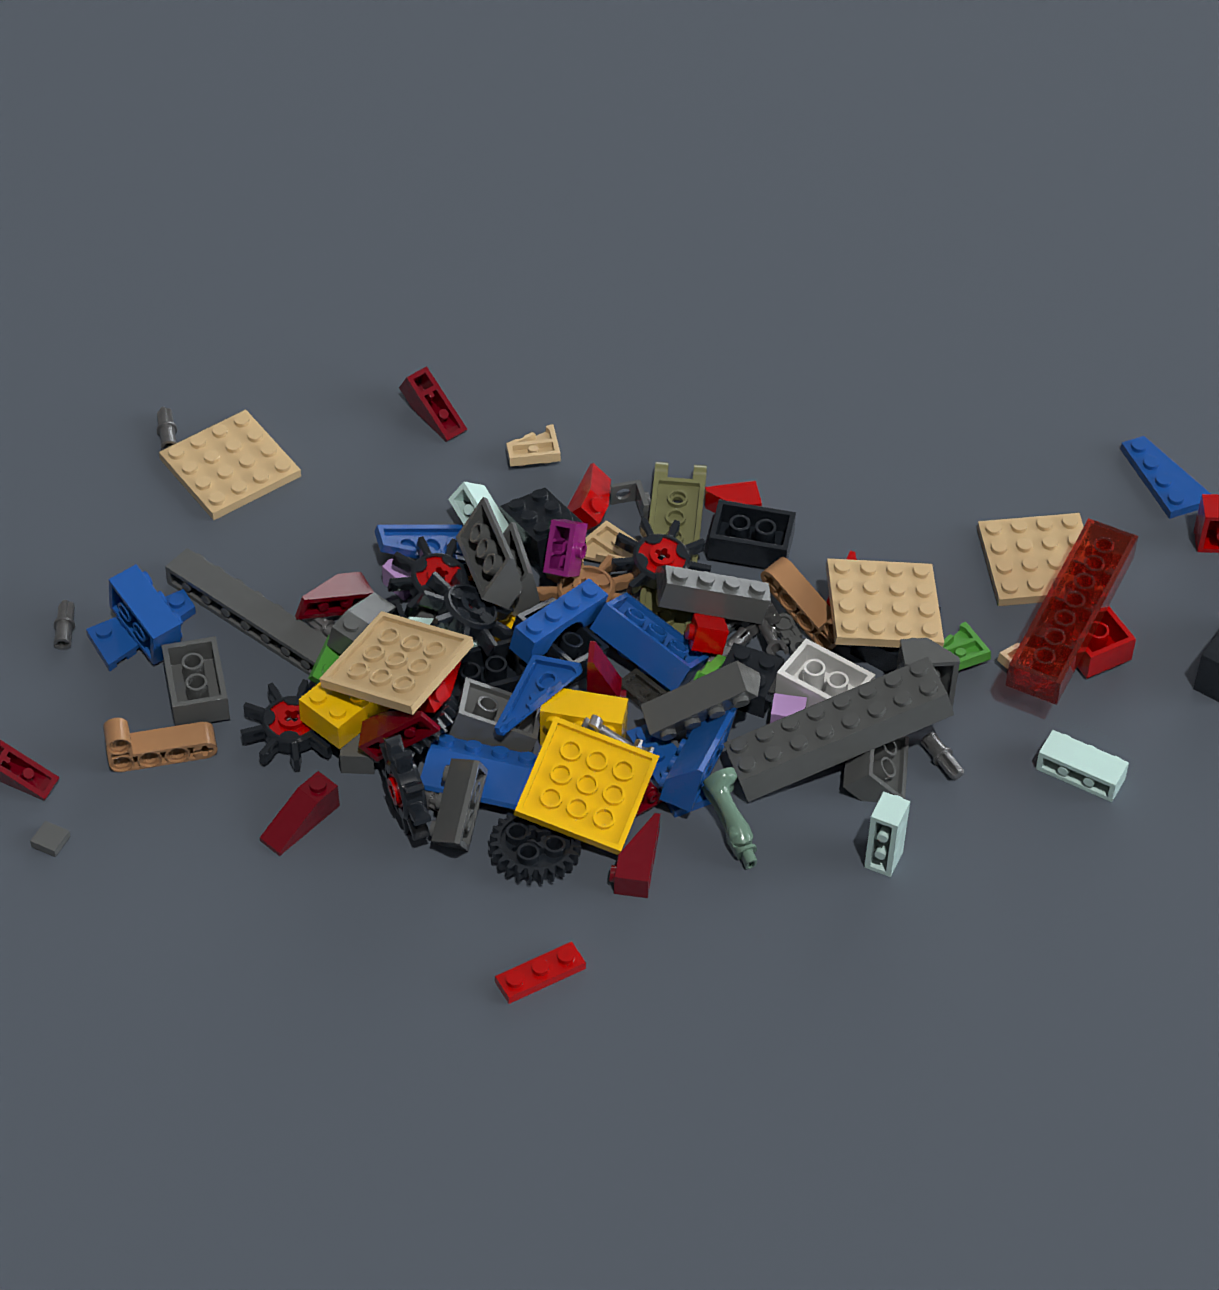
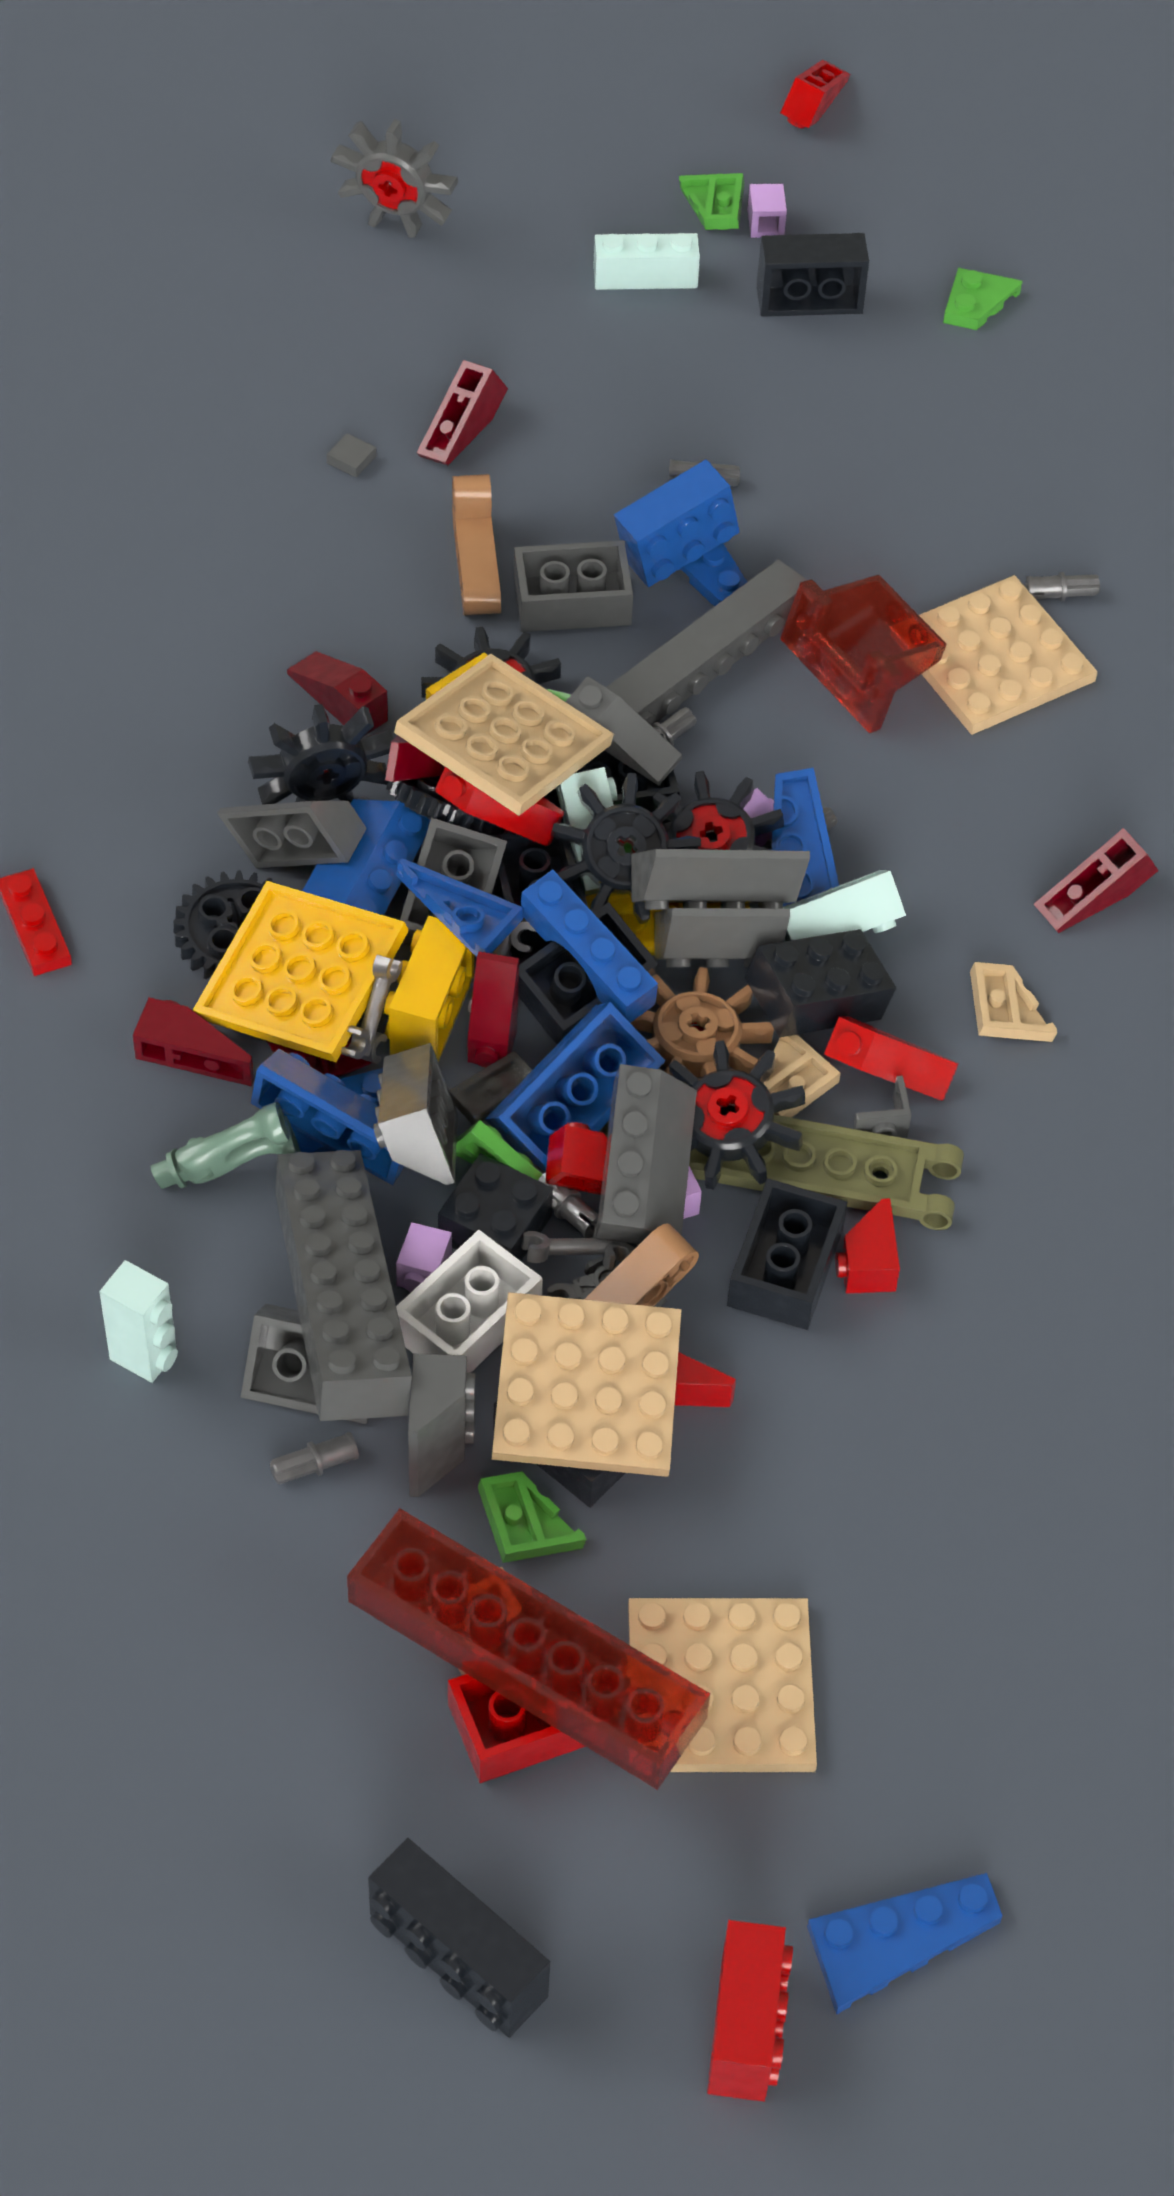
camera: 95 degrees right, 5 degrees up
(247, 518) = (860, 643): none -> clear red windscreen
(334, 596) = (707, 736): dark red slope -> none
(565, 548) = (740, 976): magenta brick -> none
(1082, 765) = (256, 1650): light aqua brick -> none

